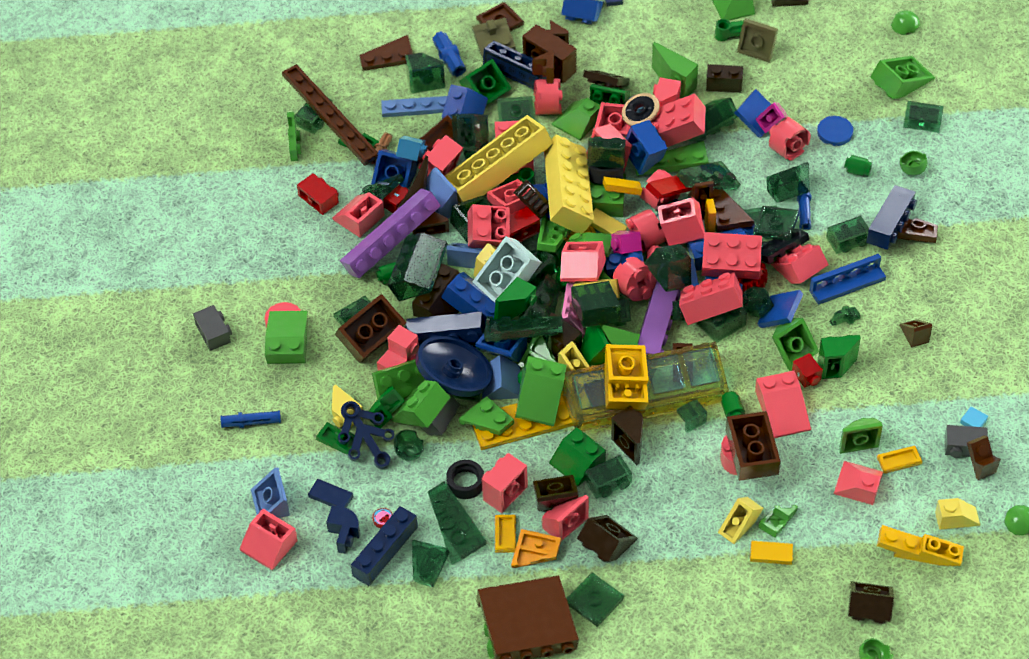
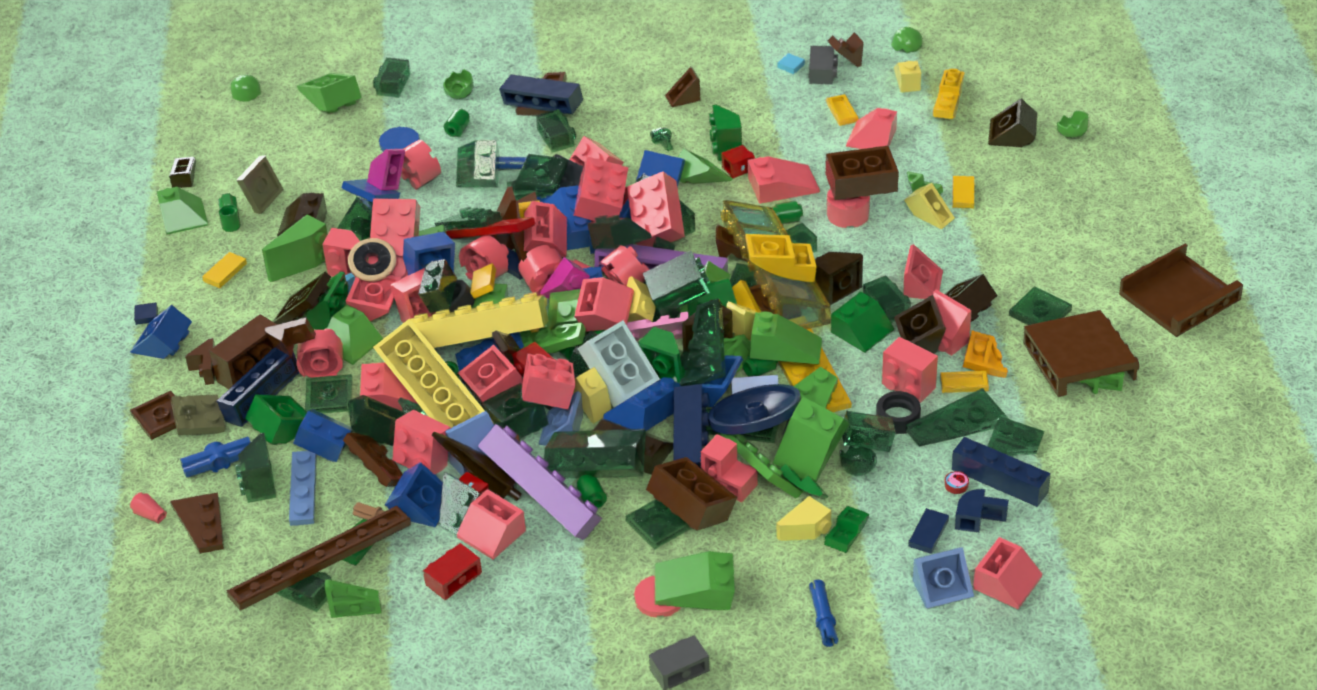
camera: 90 degrees left, 10 degrees down
(364, 431) = (824, 498): dark blue plant -> none
(402, 22) = (147, 507): none -> coral cone
(411, 148) = (404, 461): dark azure brick -> none
(435, 451) = (869, 431): none -> clear green brick
(640, 505) = (921, 275): none -> coral slope
(663, 36) = (224, 270): none -> yellow tile
(847, 280) = (616, 134): blue fence -> none
(861, 435) = (820, 123): bright green slope -> none

